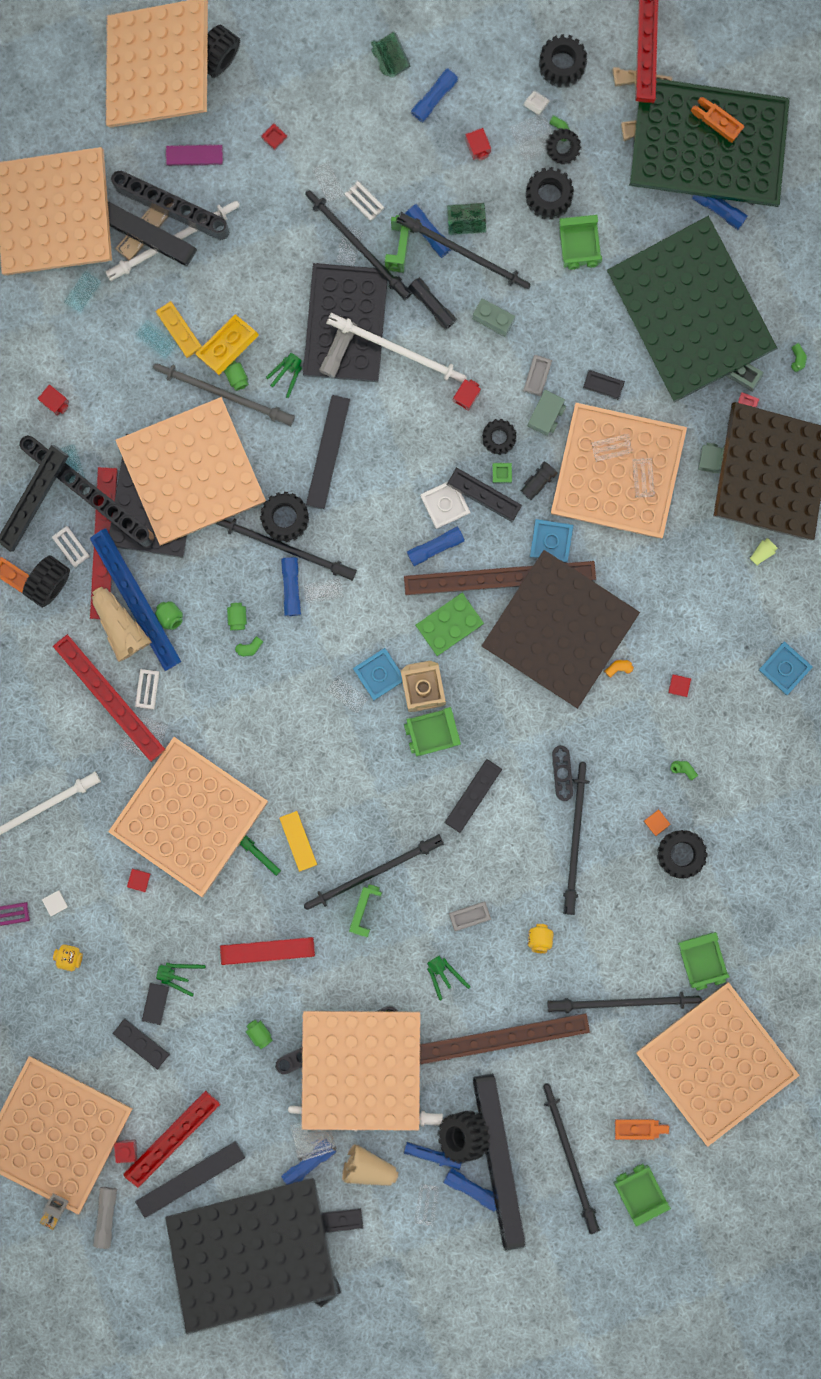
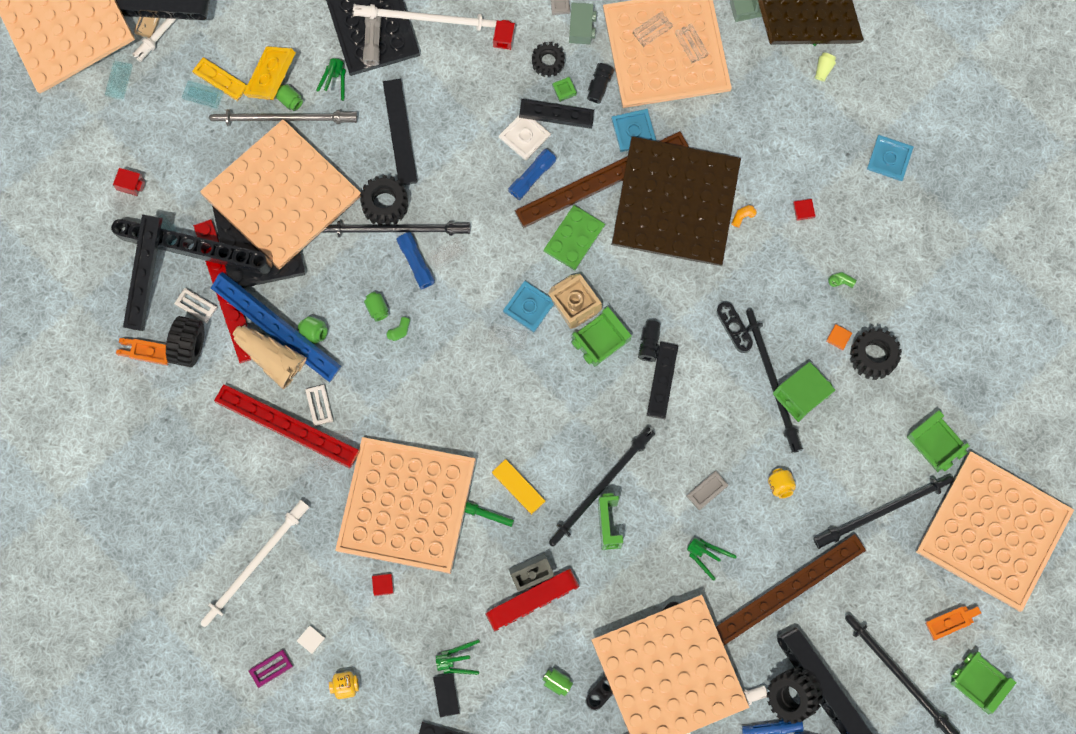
camera: 30 degrees left, 10 degrees down
(276, 926) = (531, 572): none -> pearl dark grey brick
(478, 752) = (650, 339): none -> black axle
(598, 862) = (803, 391): none -> bright green panel

